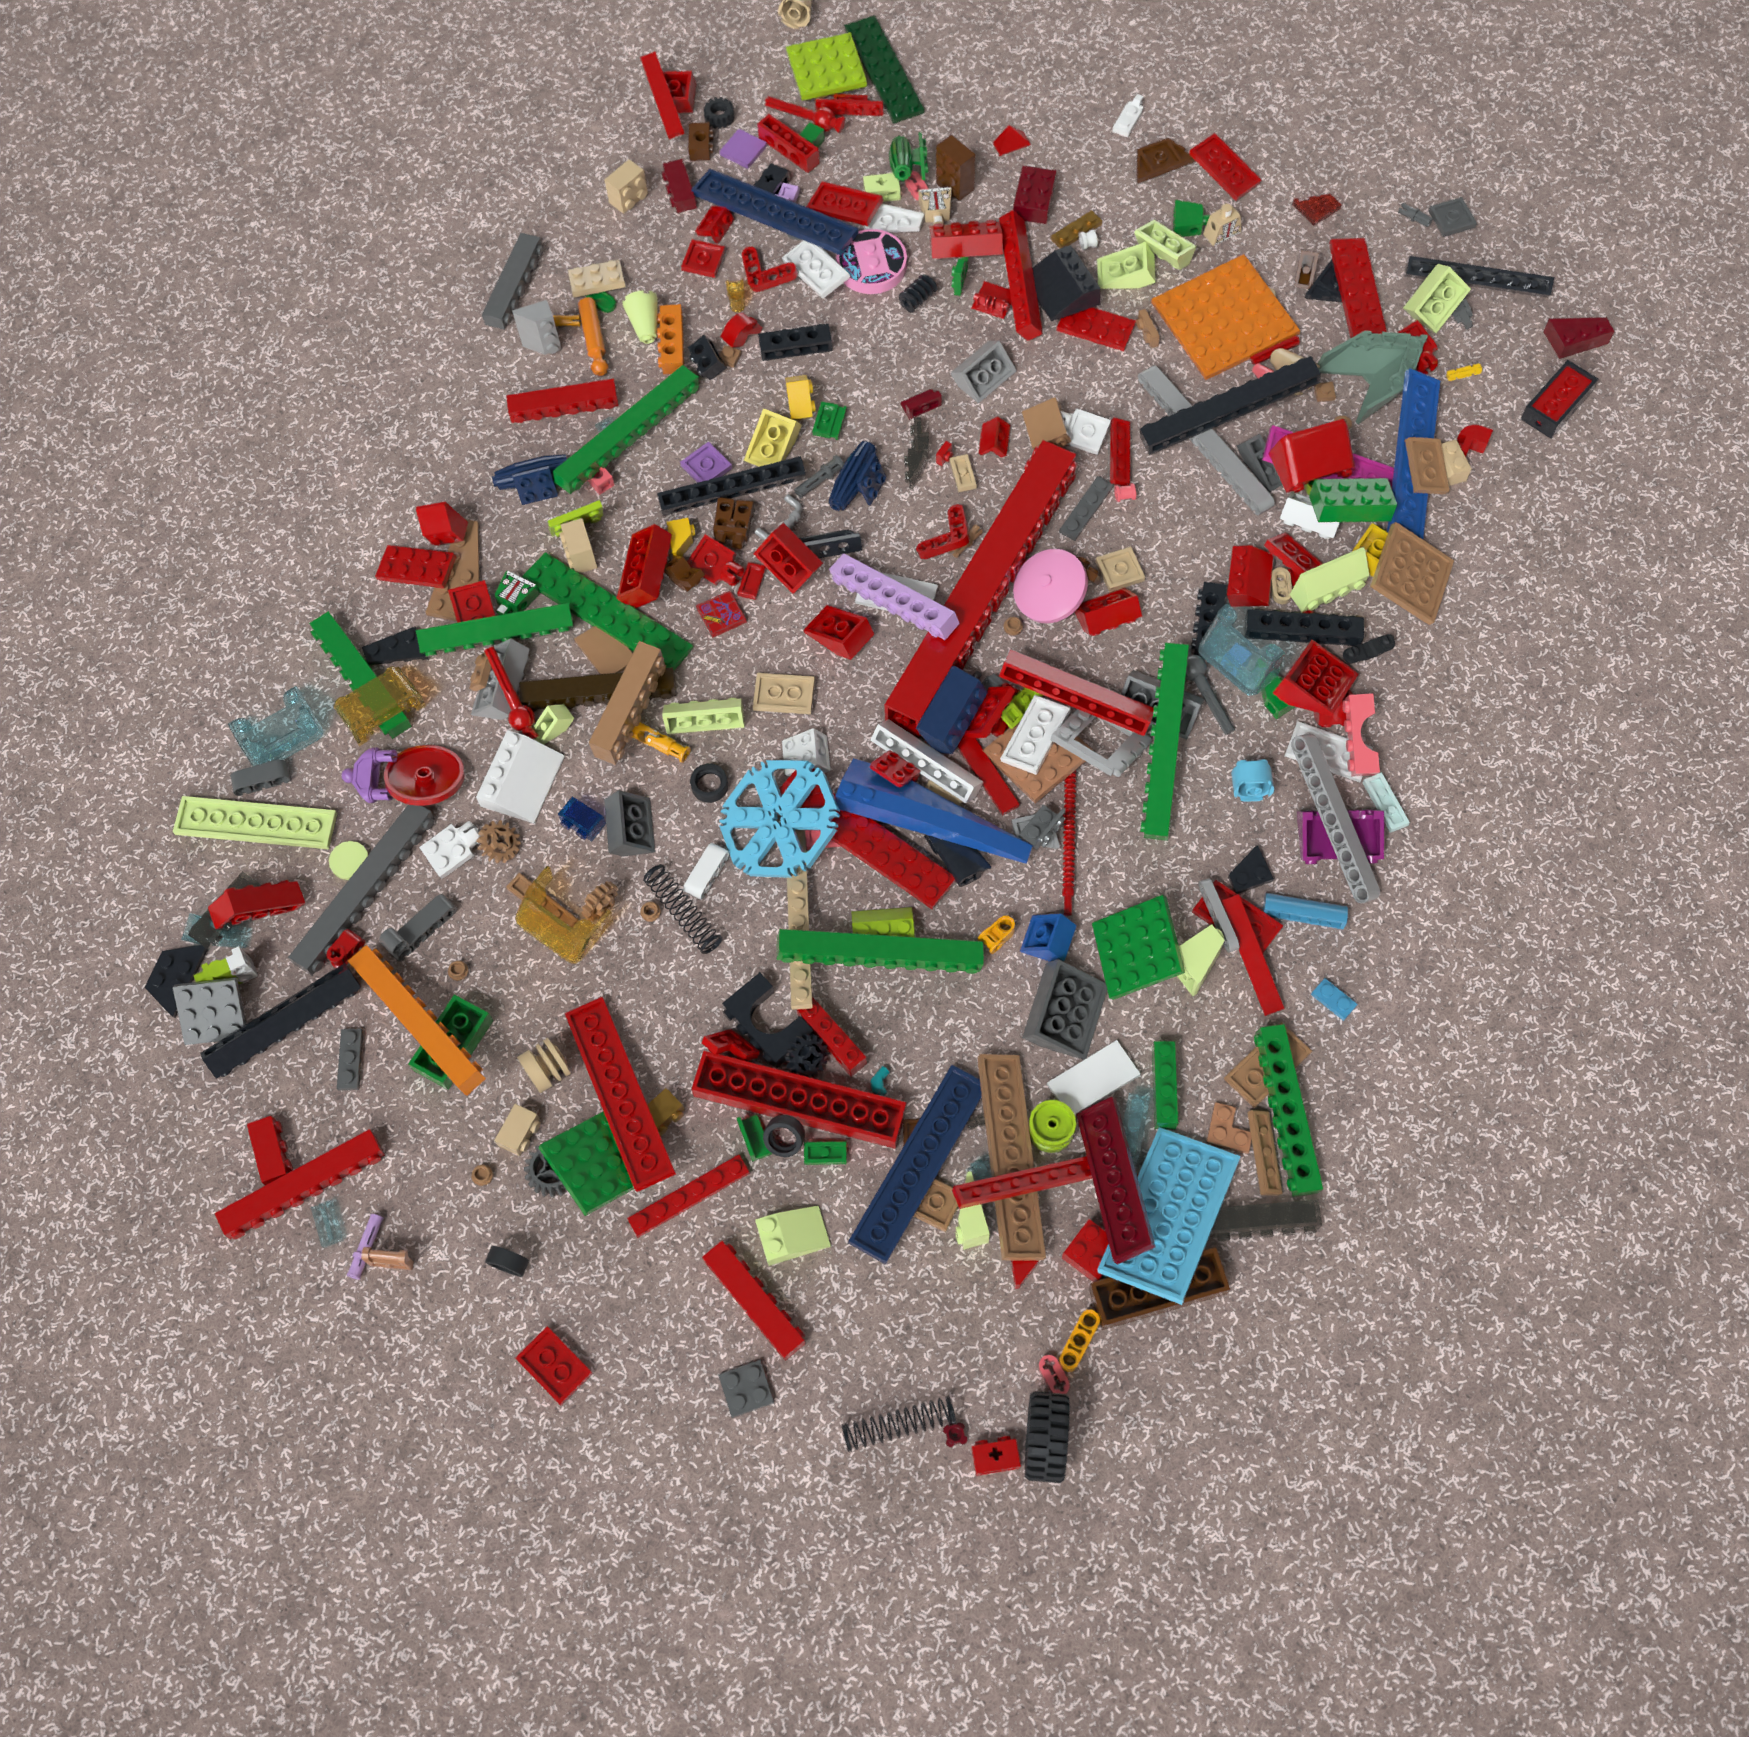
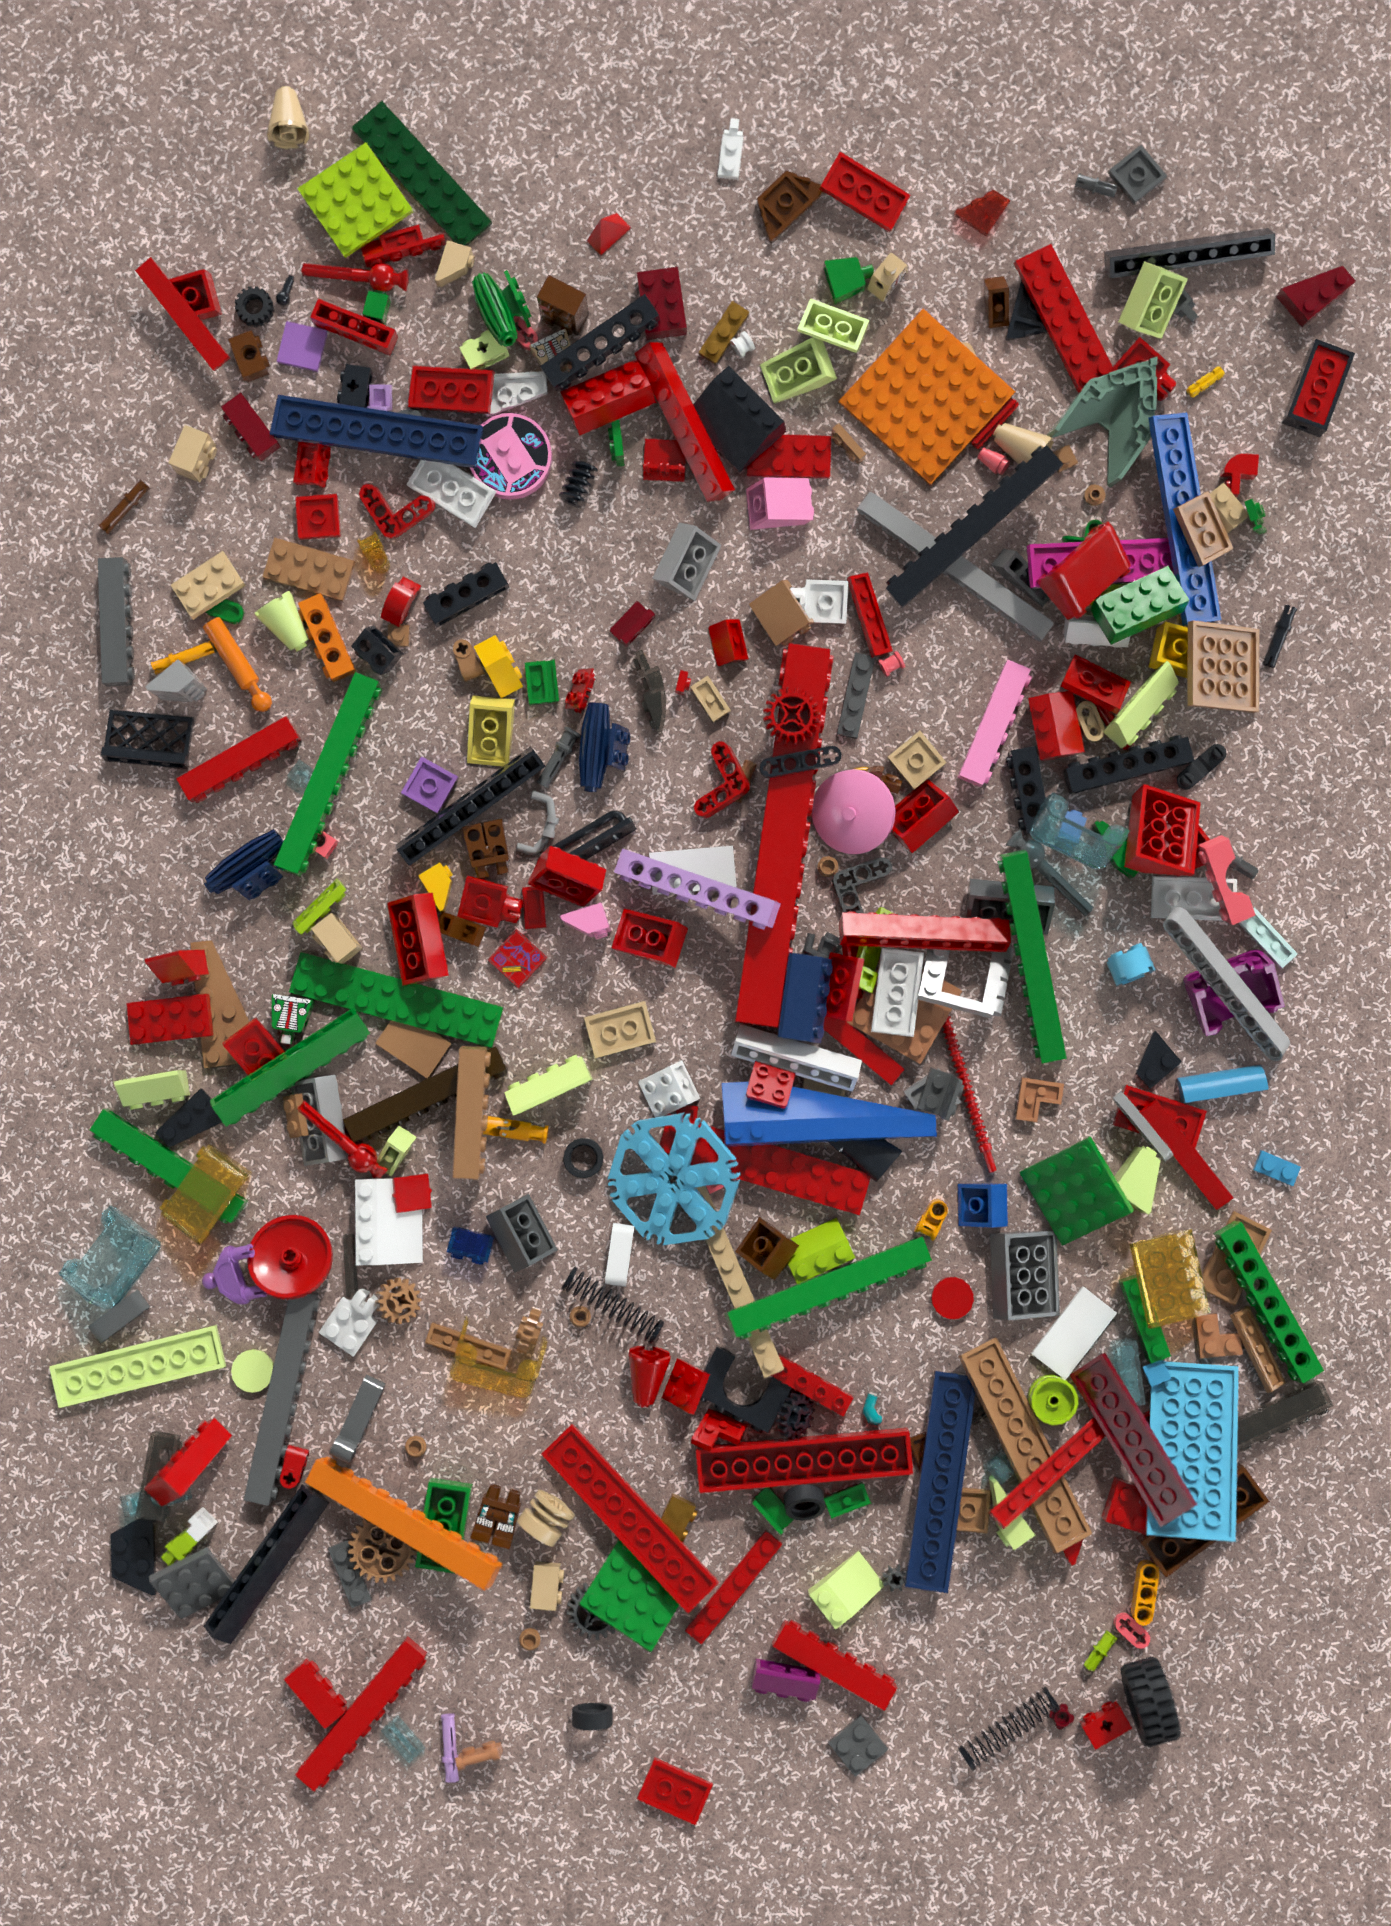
camera: 25 degrees left, 20 degrees up
(374, 1055) = (373, 1566): none -> medium nougat gear
(376, 608) = (153, 1089): none -> yellowish green slope
(471, 803) = (350, 1266): none -> clear smoke axle
(492, 377) = (142, 755): none -> black fence
(500, 1054) = (502, 1511): none -> reddish brown hips
(550, 761) = (412, 1193): none -> red piece
(564, 207) = (124, 506): none -> reddish brown pin
(677, 288) = (308, 569): none -> medium nougat plate
(687, 976) = (647, 1373): none -> red cone
(700, 1295) = (785, 1680): none -> magenta slope
(717, 996) = (685, 1386): none -> red plate
(744, 113) = (283, 296): none -> black piece
(776, 386) = (467, 663): none -> medium nougat piece
(790, 592) = (589, 920): none -> bright pink slope
(835, 1240) = (892, 1583): none -> dark grey gear
(838, 903) = (767, 1248): none -> reddish brown brick
(858, 433) = (581, 682): none -> red hinge
(883, 126) = (454, 263): none -> tan slope
(974, 198) = (622, 320): none -> black brick
(991, 1009) = (952, 1297): none -> red tile
(1015, 1383) = (1100, 1650): none -> lime axle
(1018, 522) = (801, 765): none -> black beam
(1020, 494) = (798, 722): none -> red gear
(1025, 647) = (850, 888): none -> dark grey beam
(1075, 351) = (779, 503): none -> bright pink slope
(1130, 860) = (1034, 1092): none -> nougat plate
(1159, 1136) = (1156, 1373): none -> dark azure tile
(1197, 562) = (994, 723): none -> bright pink brick
(1200, 1052) = (1170, 1278): none -> clear yellow slope
(1377, 734) = (1244, 867): none -> dark grey axle
(1475, 566) = (1282, 629): none -> black pin
(1477, 472) = (1256, 513): none -> green plate

